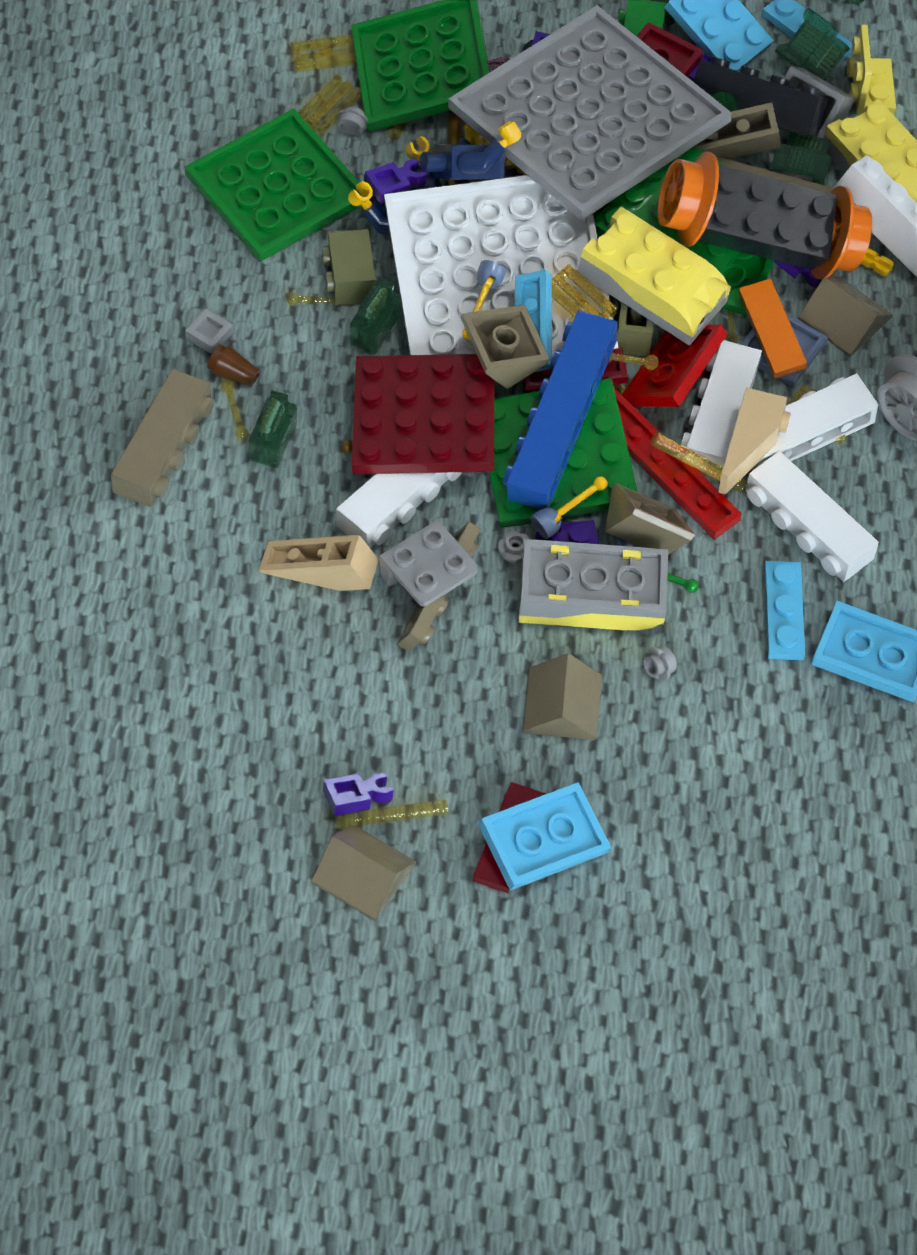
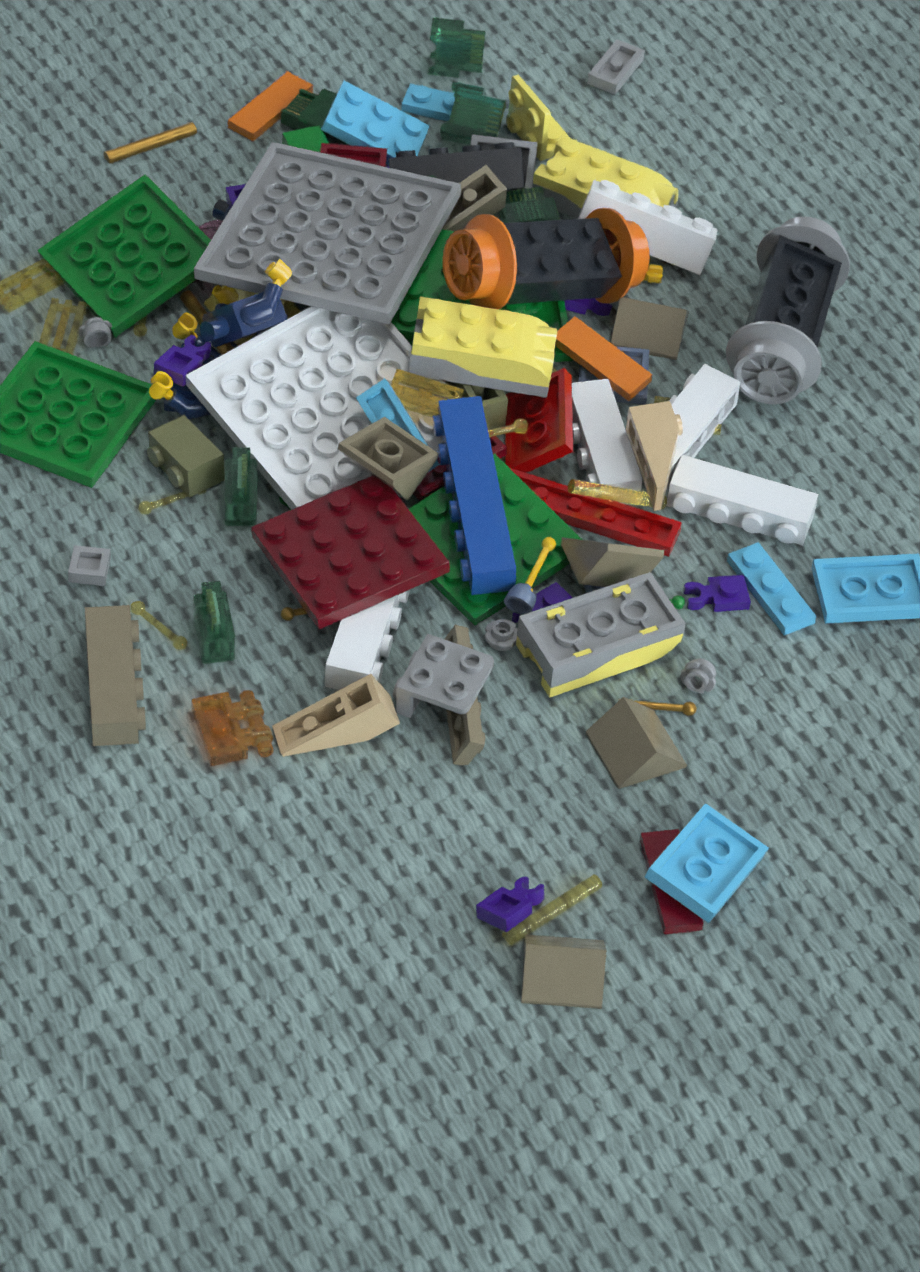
camera: 30 degrees left, 10 degrees down
(221, 523) = (221, 730): none -> clear orange plate
(231, 365) = (133, 586): reddish brown cone -> none
(489, 277) = (332, 407): sand blue hinge -> none
(632, 687) = (687, 708): none -> pearl gold hinge
(737, 596) = (723, 592): none -> dark purple plate

